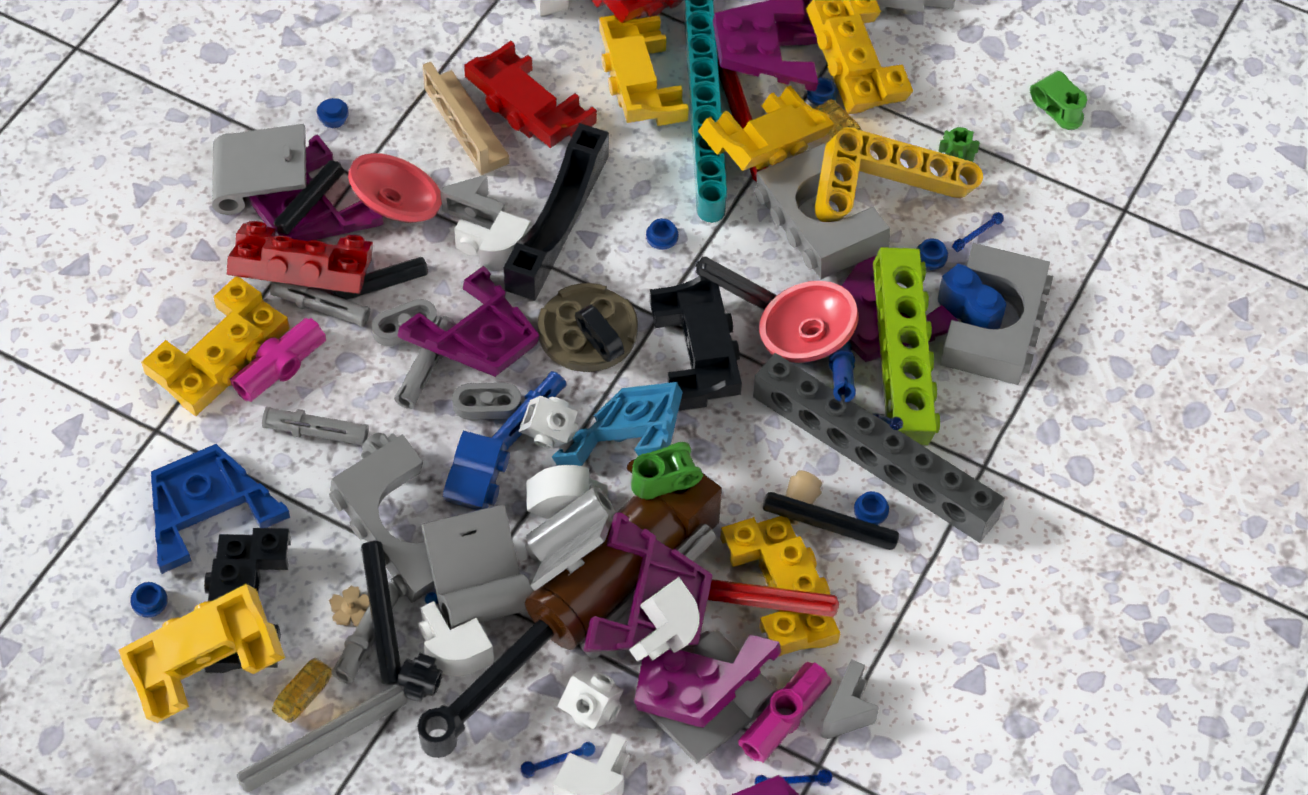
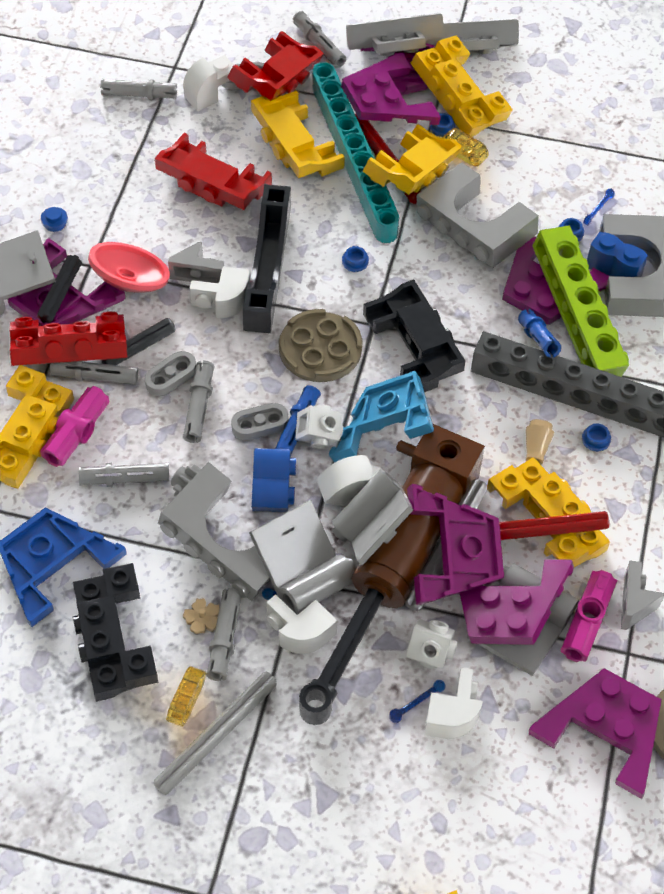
camera: 15 degrees left, 0 degrees up
(148, 599) = (28, 651): blue plate -> none
(195, 642) = (86, 677): yellow bracket -> none
(381, 612) = (234, 614): black axle -> none
(420, 677) = (283, 660): black gear -> none
(464, 119) = (164, 202): tan fence -> none
(483, 340) = (243, 371): magenta wing -> none
(599, 333) = (335, 346): black beam -> none
(670, 468) = (440, 439): bright green piece -> none
(674, 616) = (483, 559): white brick -> none
(734, 282) = (432, 284): black axle -> none
(809, 321) = (499, 301): coral dish -> none
(823, 778) = (635, 662): clear blue hinge -> none
(830, 520) = (570, 454): black axle -> none
(888, 167) = (496, 161): yellow beam -> none
(895, 423) = (598, 364): clear blue hinge -> none
(959, 144) = (562, 144): bright green gear -> none
(1060, 100) = (624, 92): bright green piece -> none

